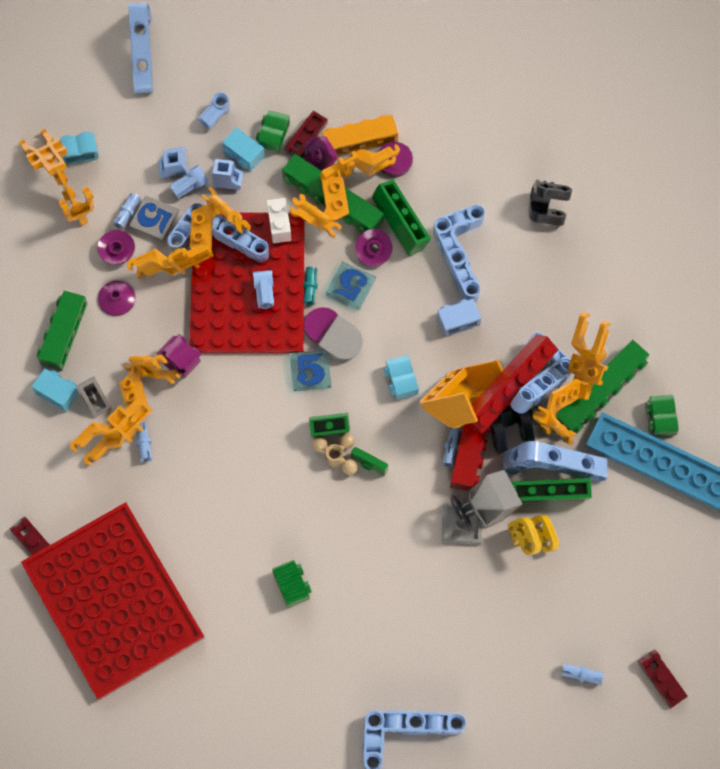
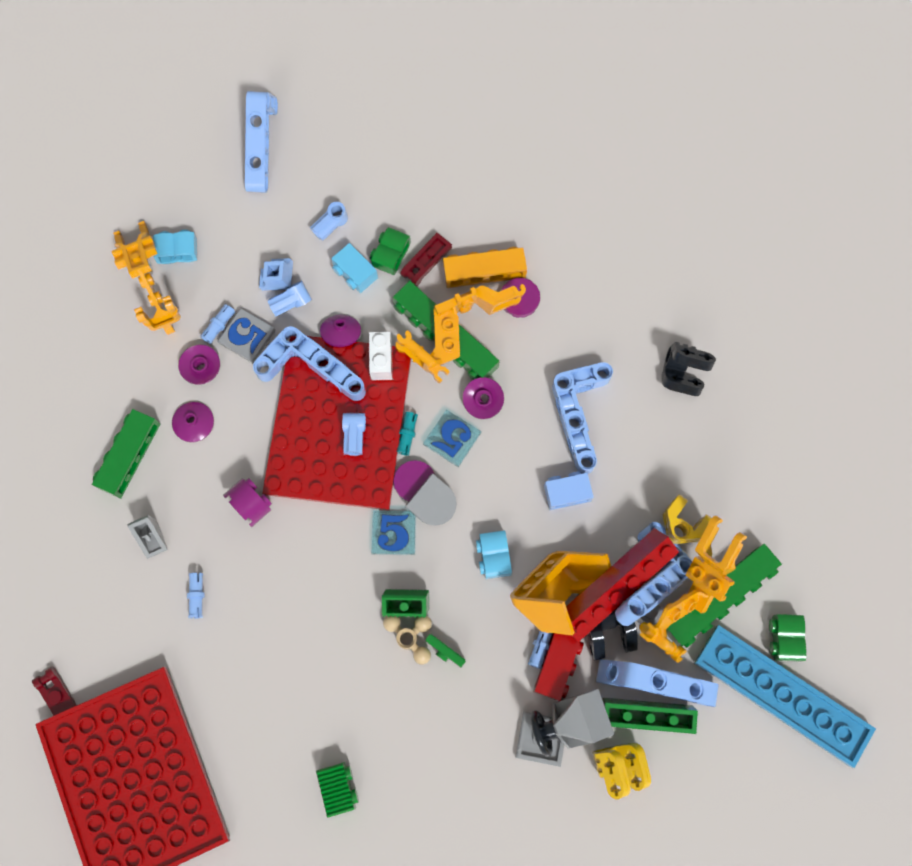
camera: 10 degrees right, 5 degrees up
(55, 389) = (107, 521): medium azure brick -> none
(125, 422) = (176, 575): light orange piece -> none
(200, 241) = (288, 368): light orange piece -> none
(226, 175) = (332, 296): light blue brick -> none
(241, 202) = (340, 330): none -> magenta dish
(322, 145) = (438, 275): magenta plate -> none
(401, 217) = (518, 367): green brick -> none
(552, 328) = (690, 533): none -> yellow piece

